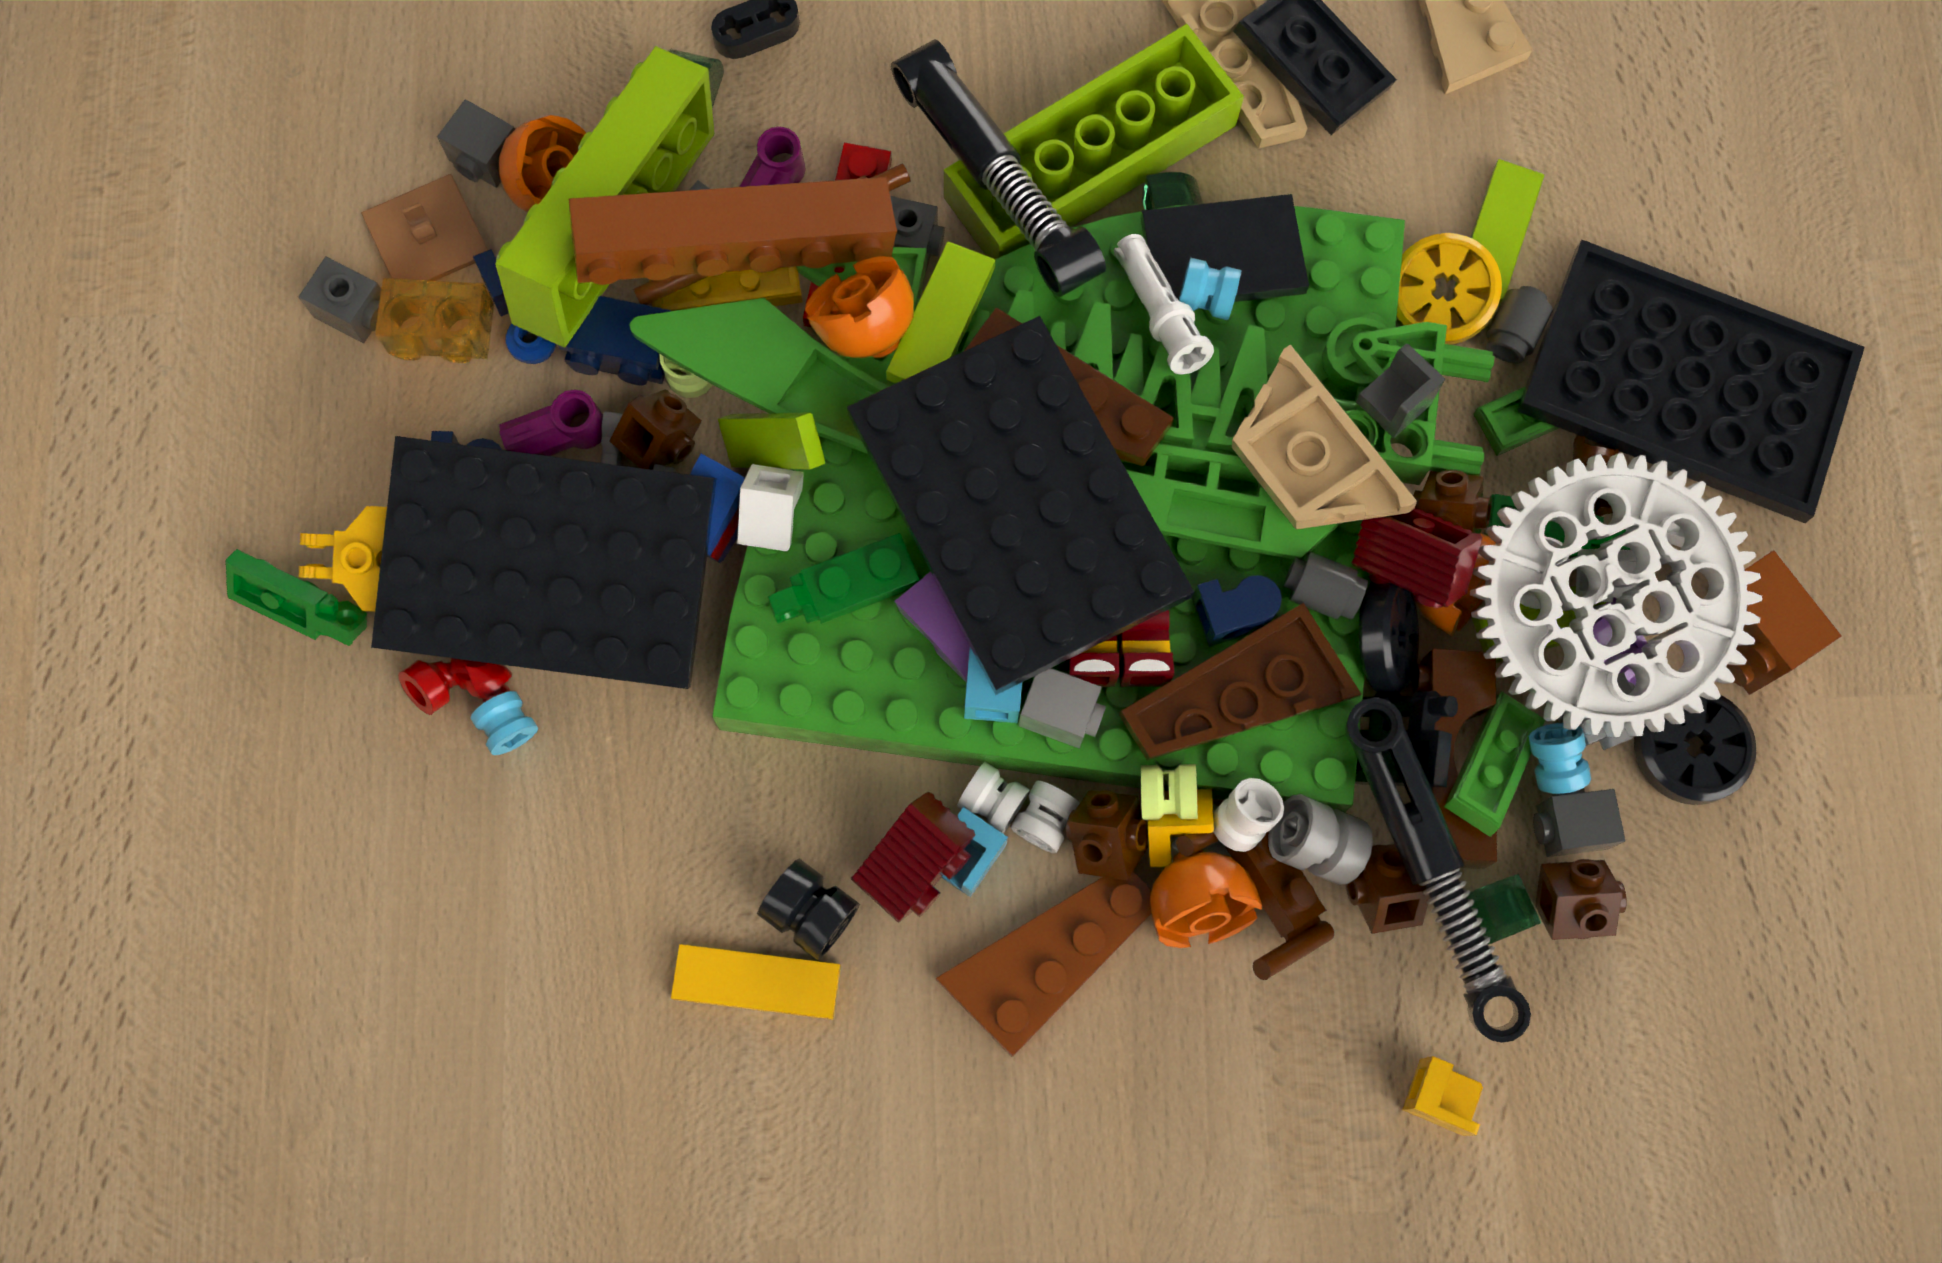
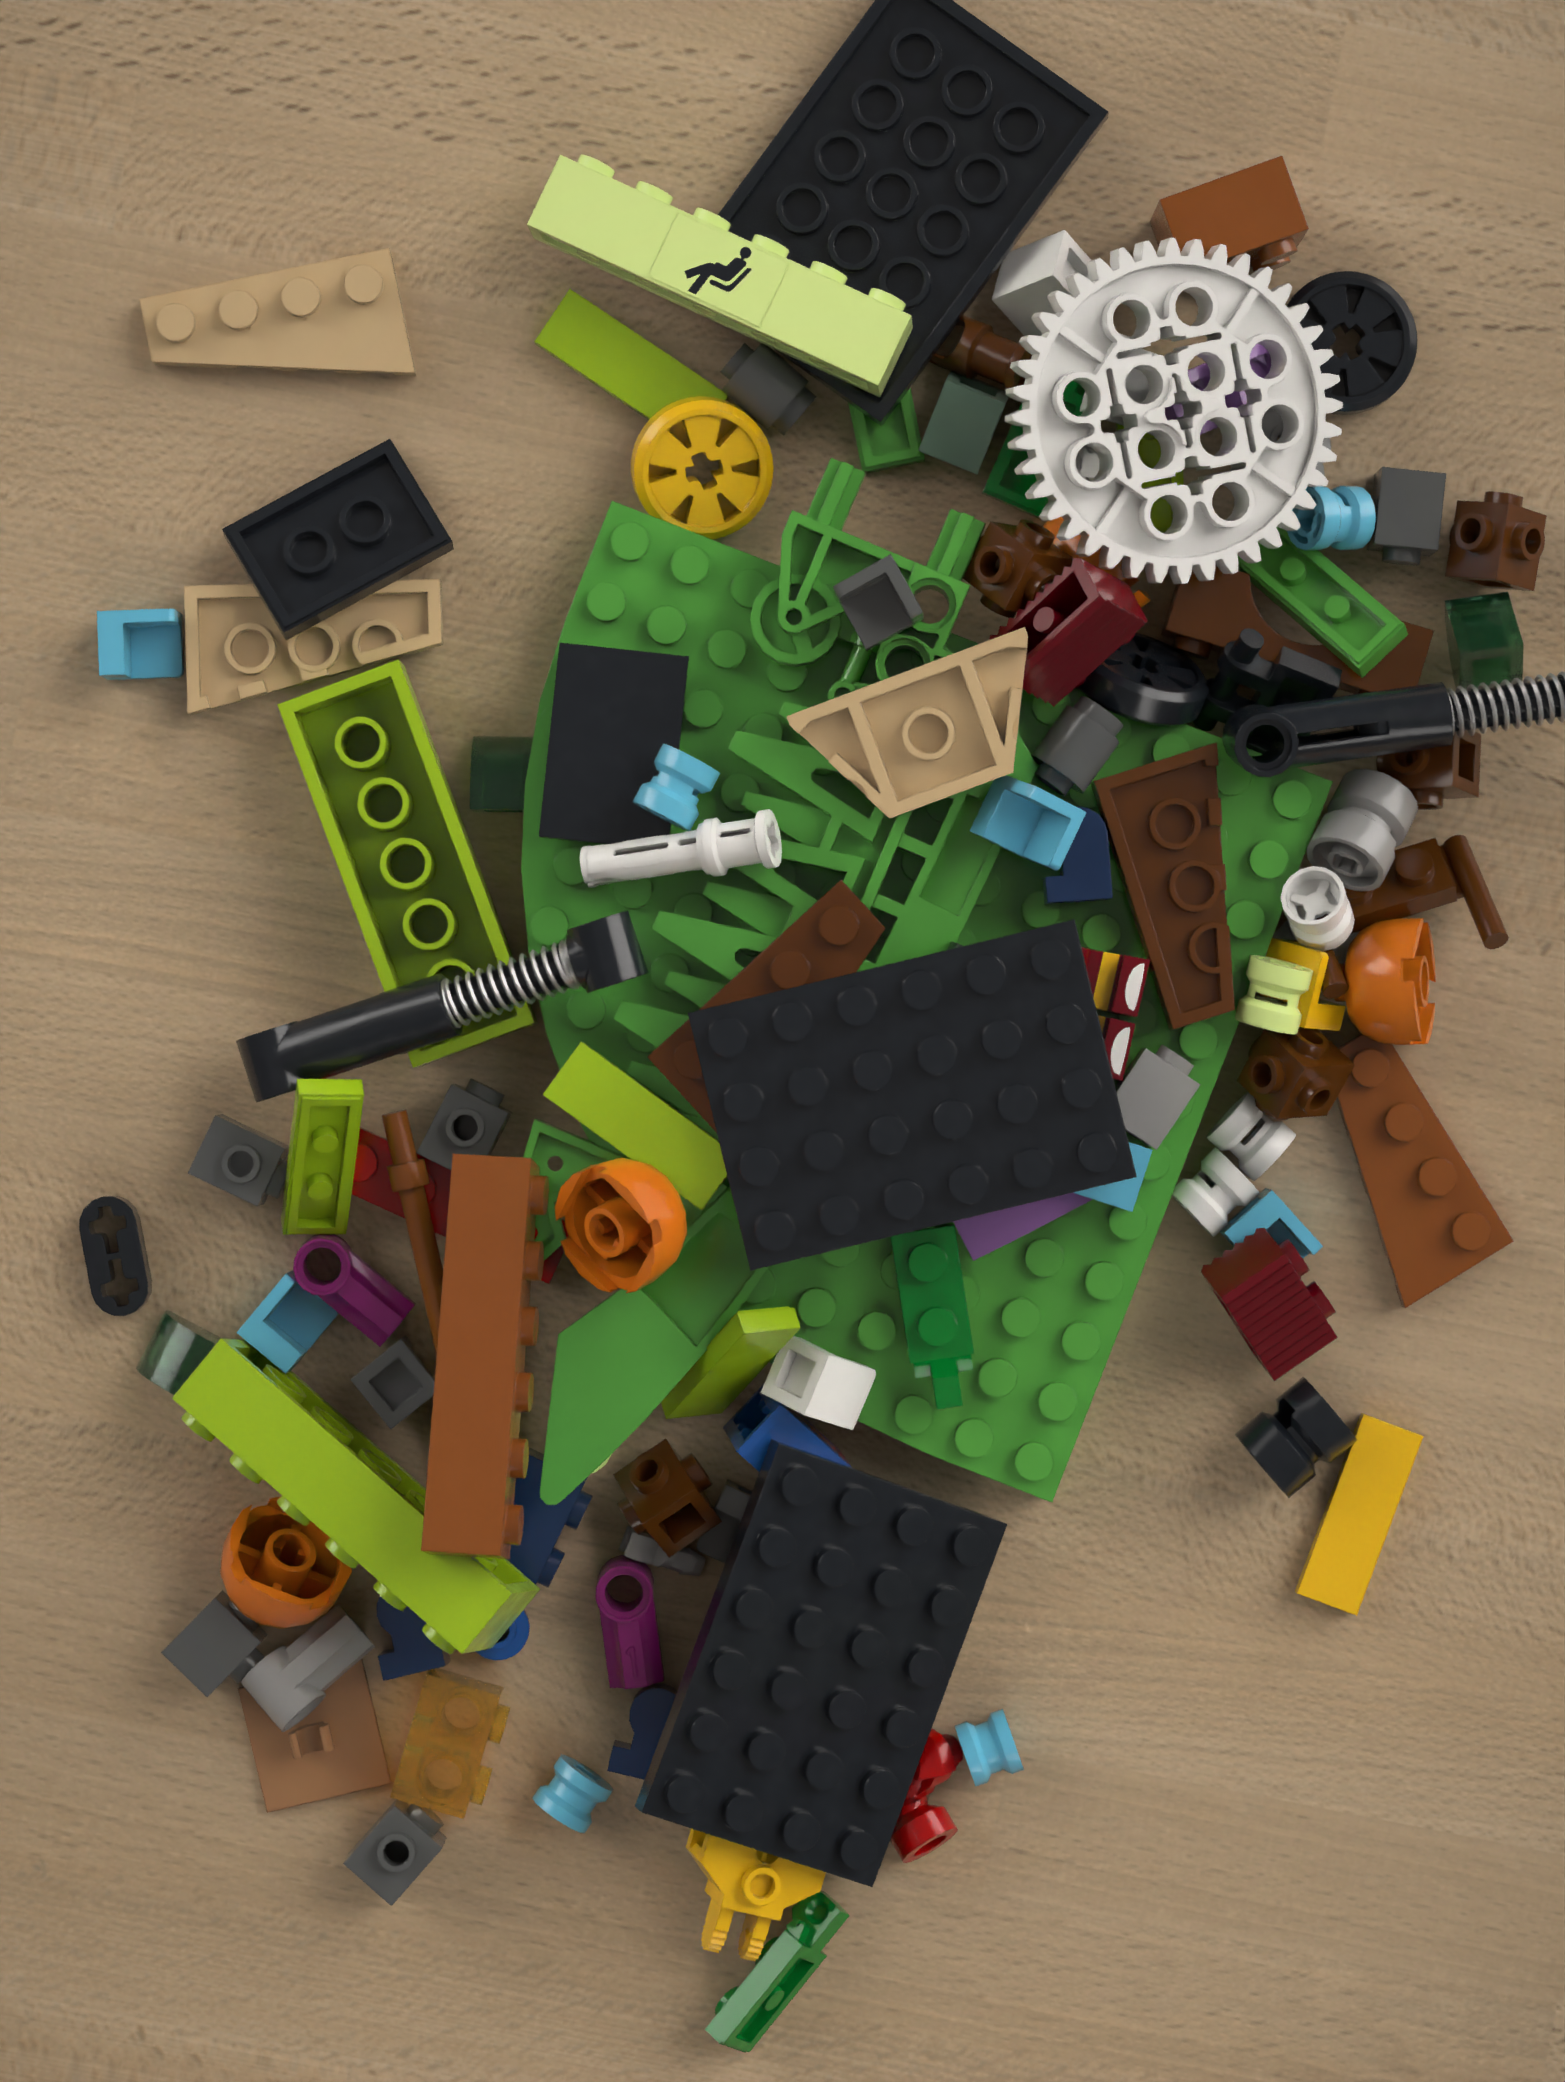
camera: 75 degrees left, 15 degrees up
(410, 416) = (572, 1794): none -> medium azure wheel
(464, 200) = (294, 1678): none -> light grey piece
(728, 141) = (287, 1323): none -> medium azure panel
(844, 86) = (241, 1161): none -> dark grey brick
(862, 124) = (322, 1156): none -> lime tile
(1259, 549) = (1028, 821): none -> medium azure panel
(1533, 458) = (964, 422): none -> sand green brick
(1597, 263) = (721, 274): none -> yellowish green brick

